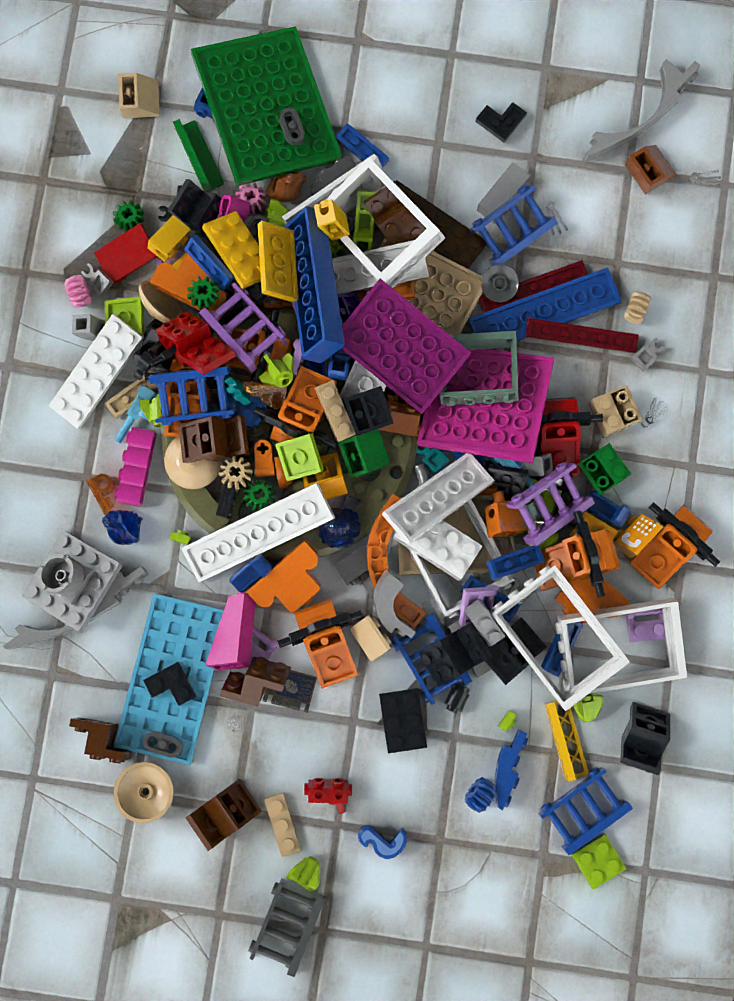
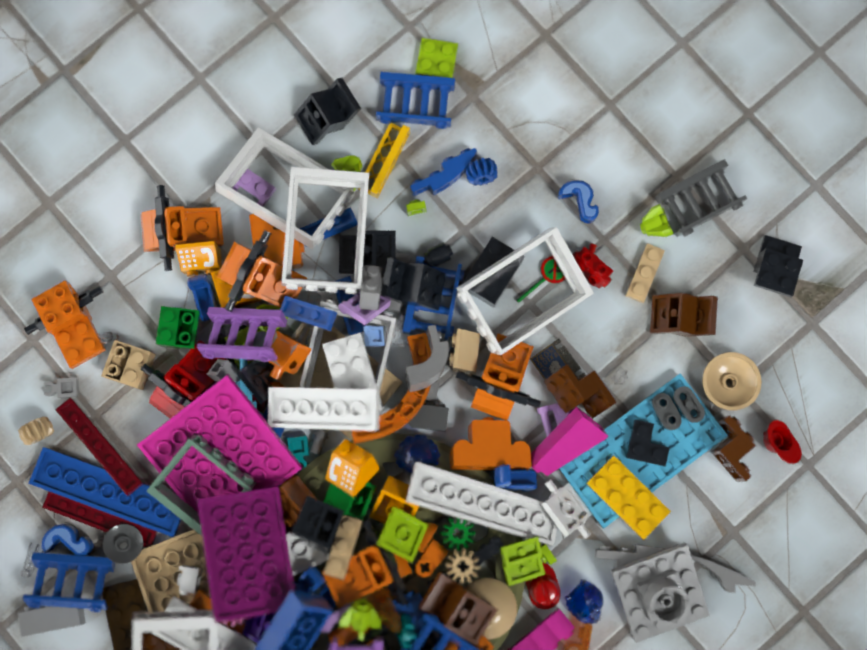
camera: 135 degrees left, 0 degrees up
(66, 777) = (781, 441): none -> red piece
(153, 632) = (628, 497): none -> yellow plate
(165, 513) = (544, 590): none -> red piece
(176, 723) = (666, 412): none -> dark grey plate
(179, 921) = (778, 266): none -> black bracket
(192, 583) = (567, 509): none -> white plate
(194, 516) = (522, 561): none -> lime slope
(342, 773) = (569, 269): none -> white window
(357, 764) = (550, 273): none -> piece
(380, 473) = (351, 467): none -> light orange slope
(428, 298) = (189, 579): none -> white brick
(449, 587) = (374, 336): none -> light blue tile
(542, 256) = (70, 537): none -> blue animal
(691, 406) = (69, 321): none -> orange piece

